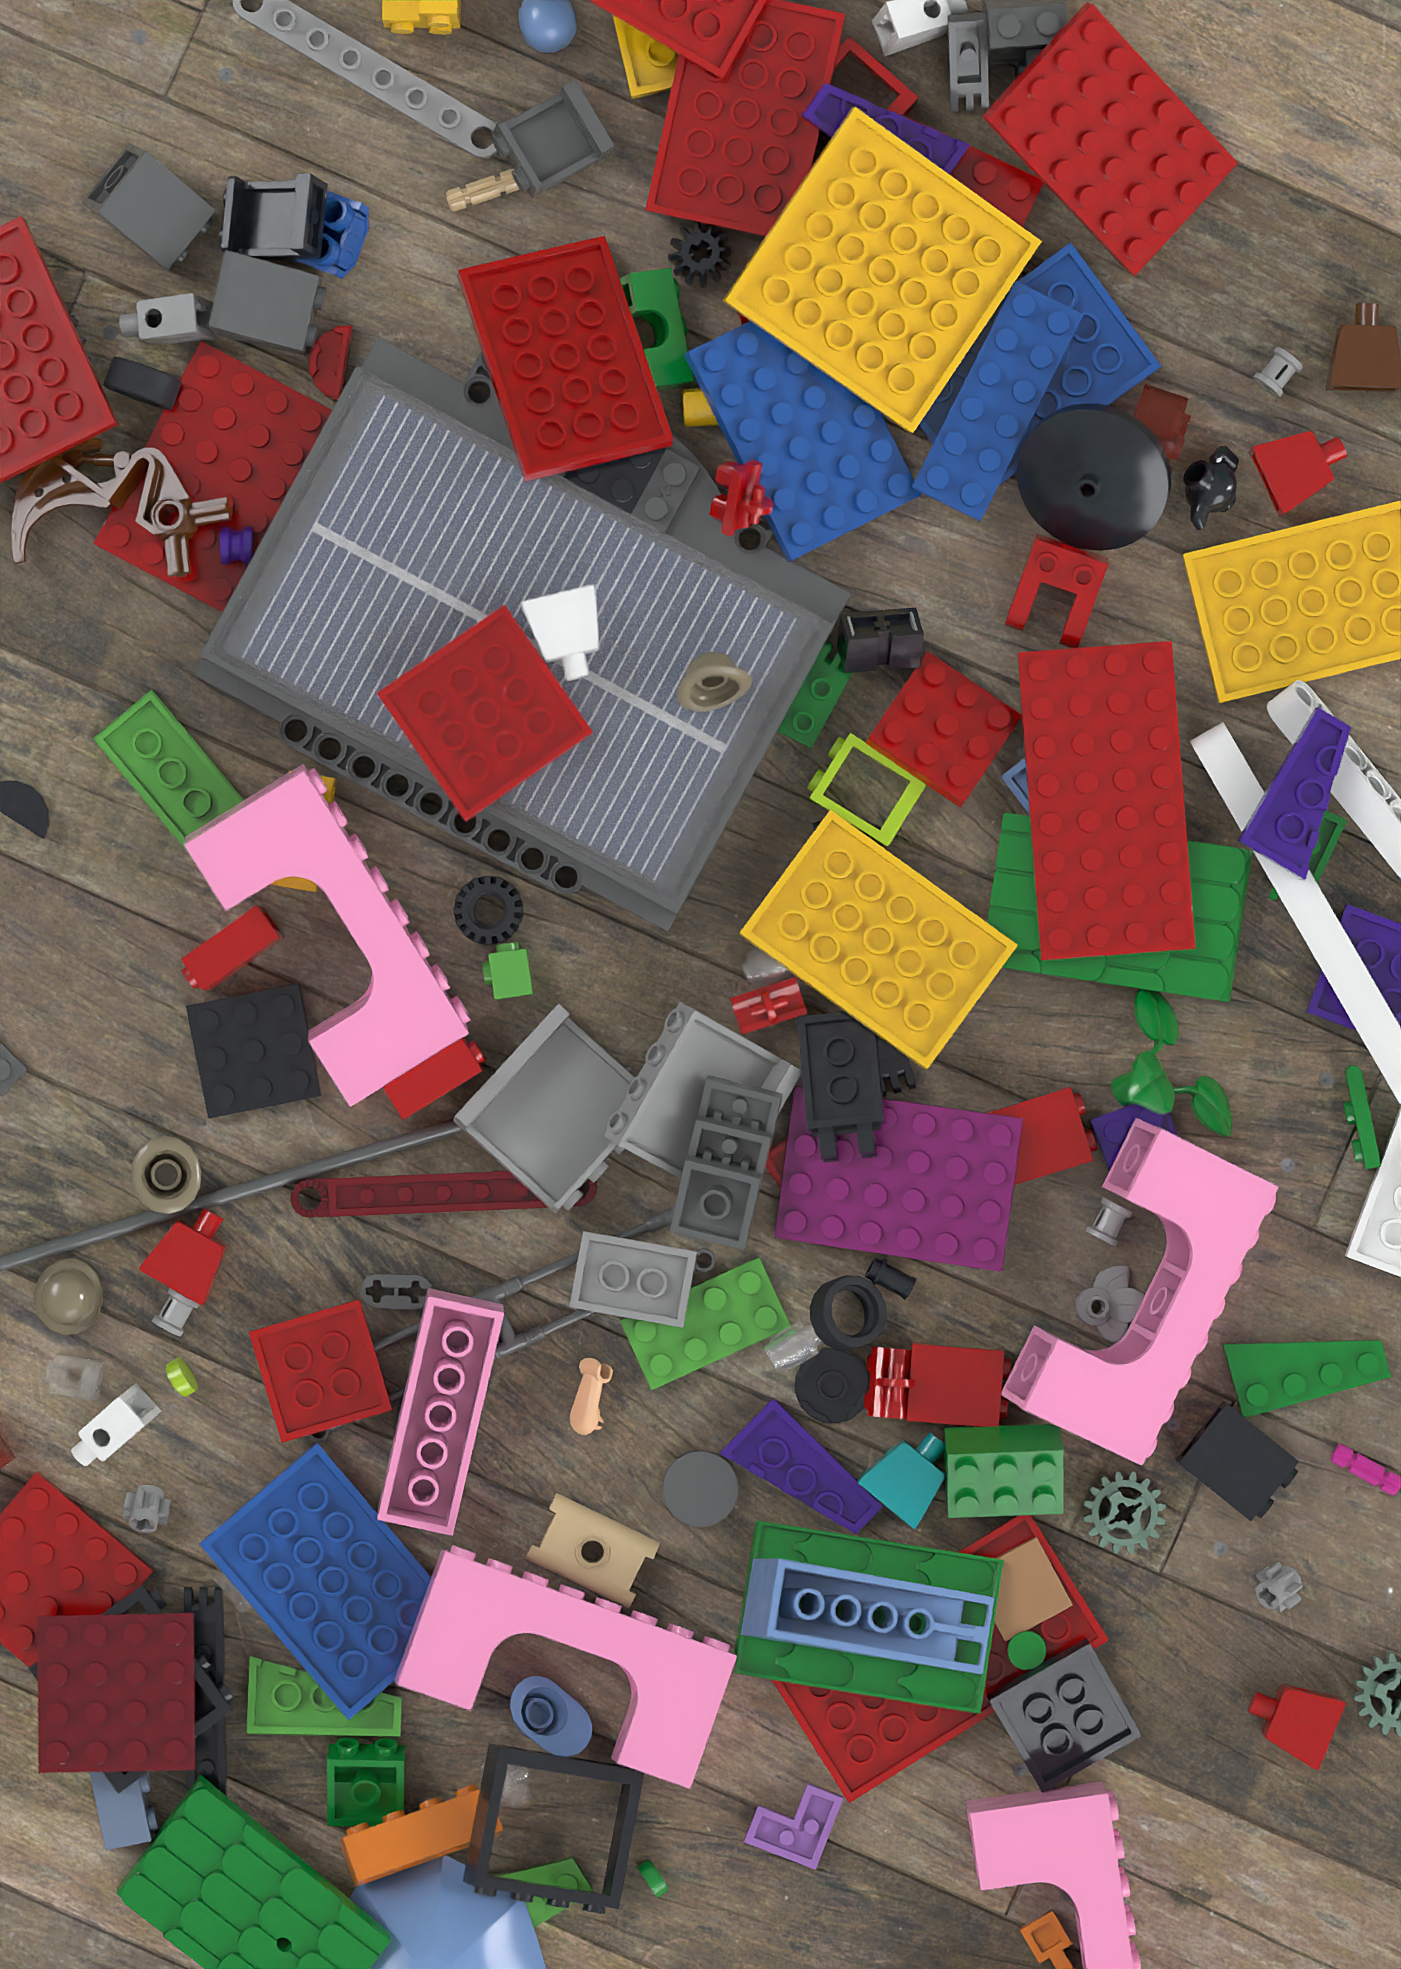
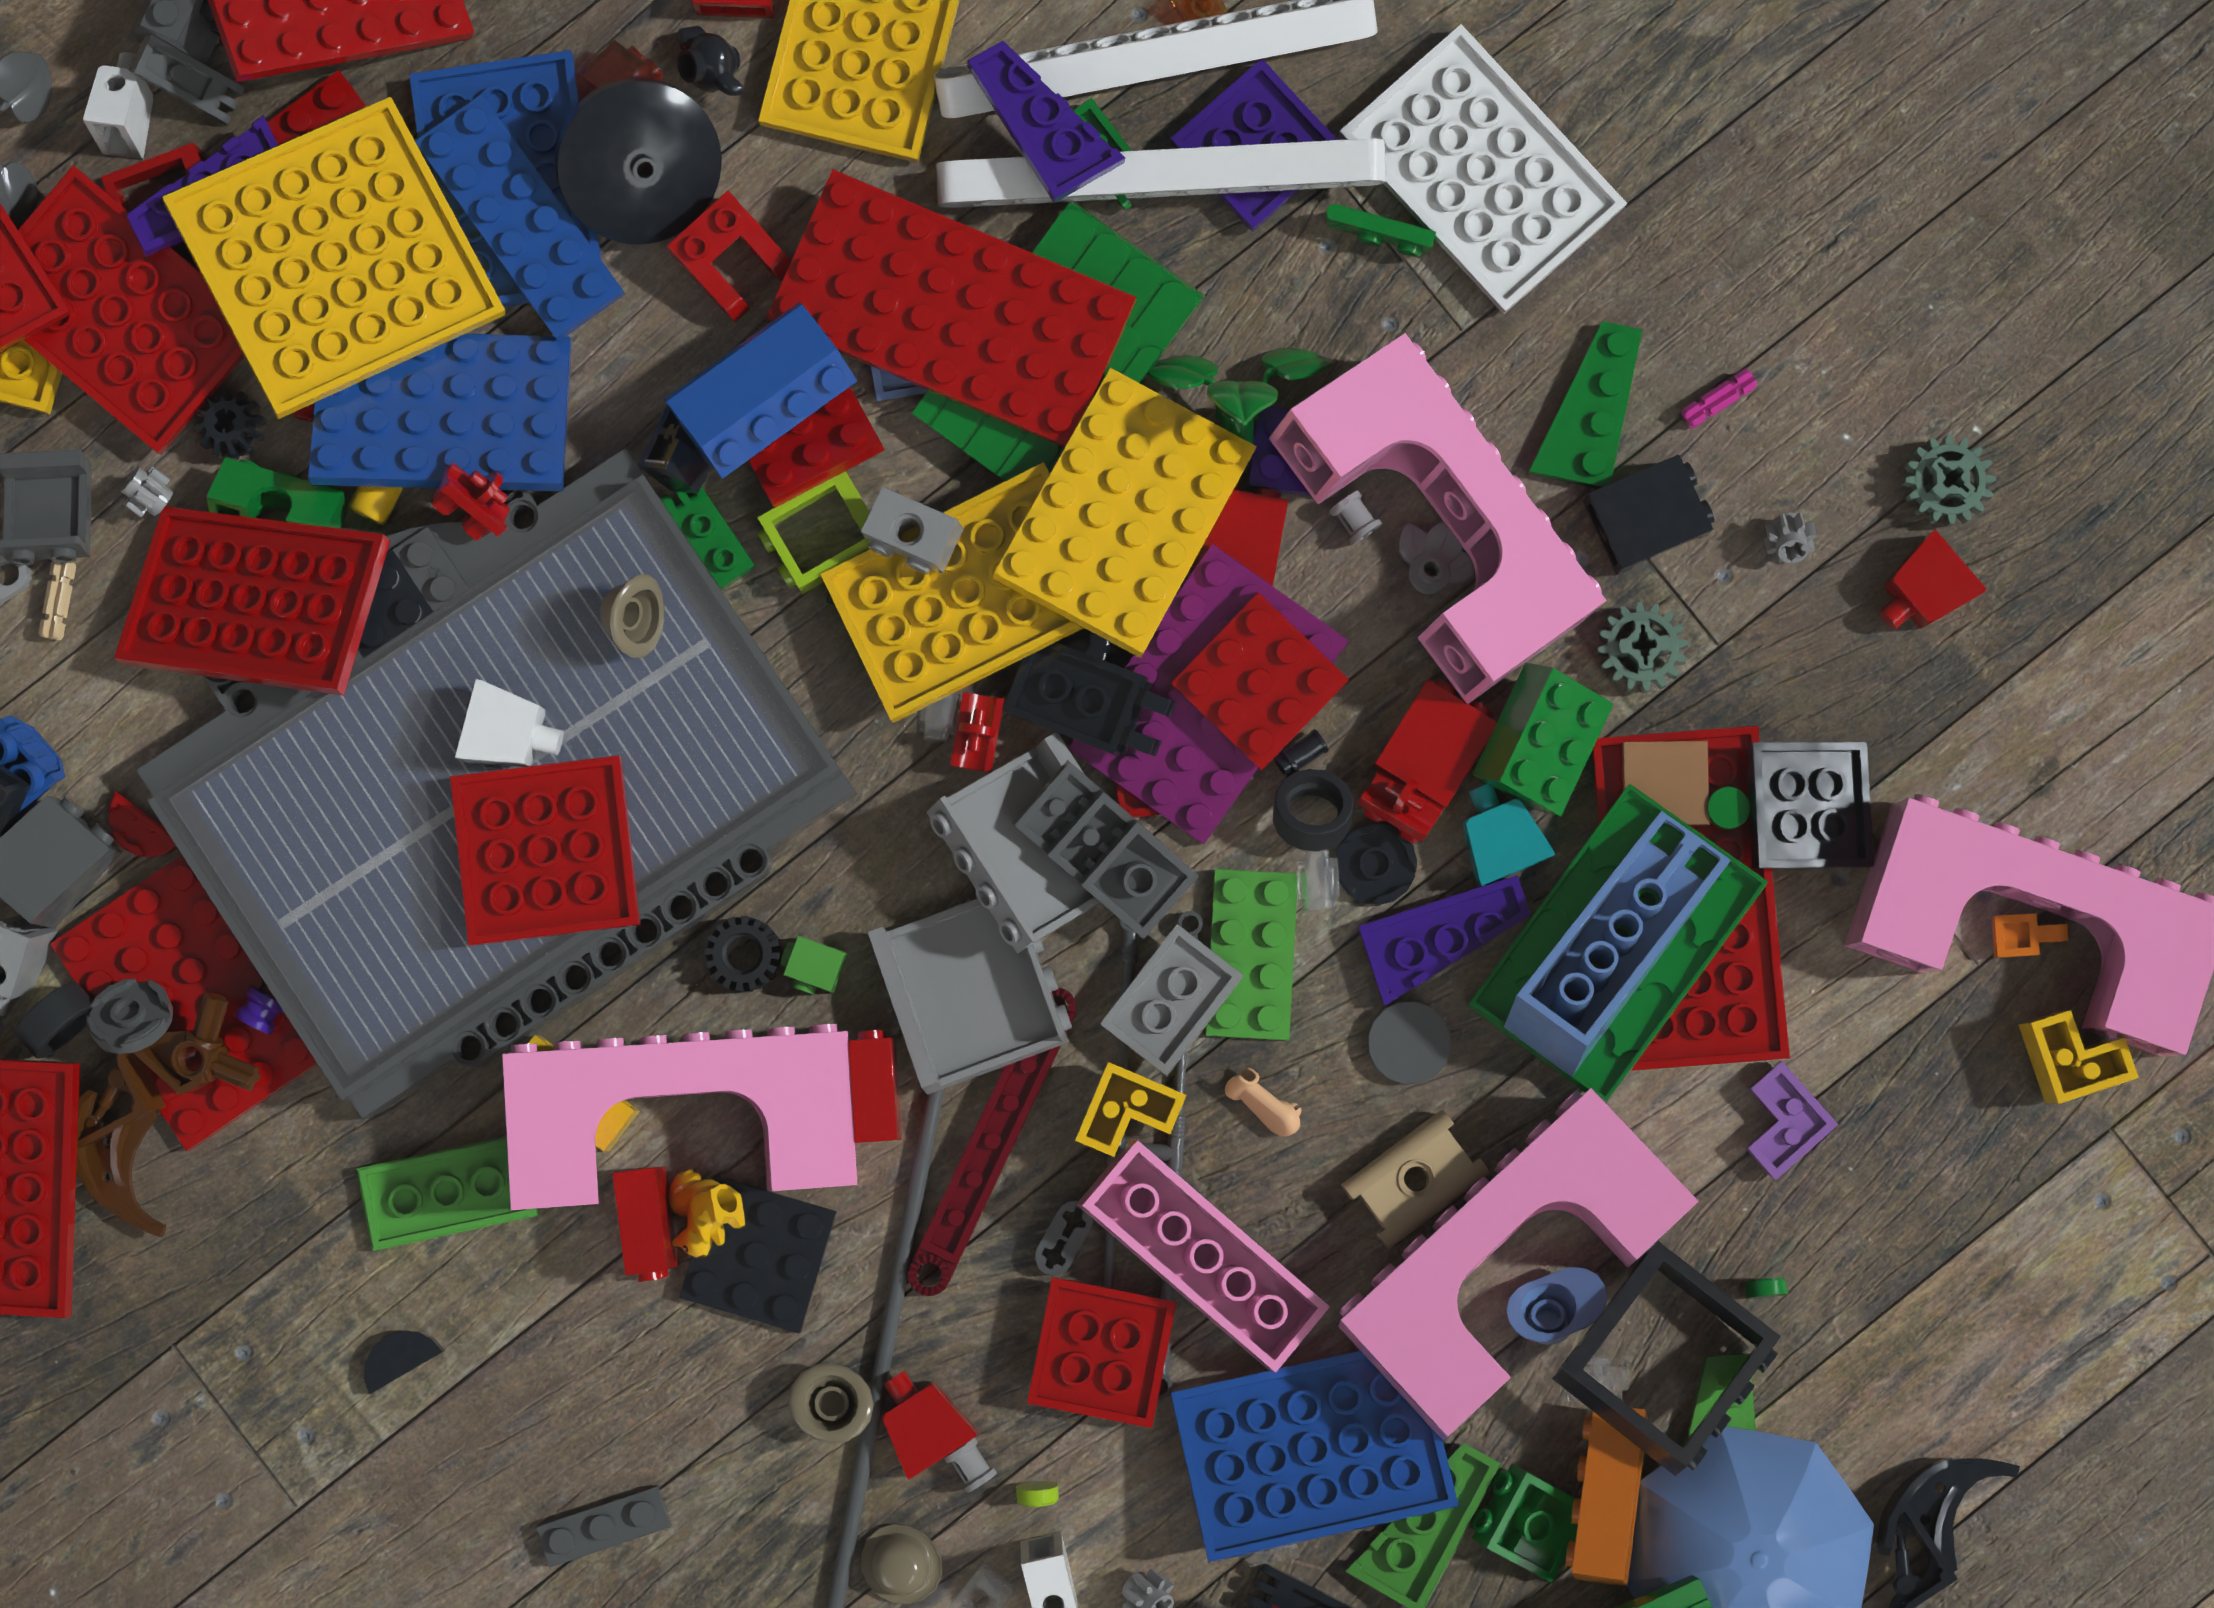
camera: 60 degrees left, 5 degrees down
(176, 443) = (129, 1016): none -> dark grey tile
(268, 994) = (706, 1208): none -> yellow animal
(533, 1282) = (1123, 1097): none -> yellow brick
(609, 216) = (146, 491): none -> light grey gear
(906, 845) = (894, 514): none -> light grey brick
(929, 1216) = (1260, 681): none -> red plate
(953, 683) = (760, 390): none -> blue slope
(1010, 1034) = (1124, 512): none -> yellow plate

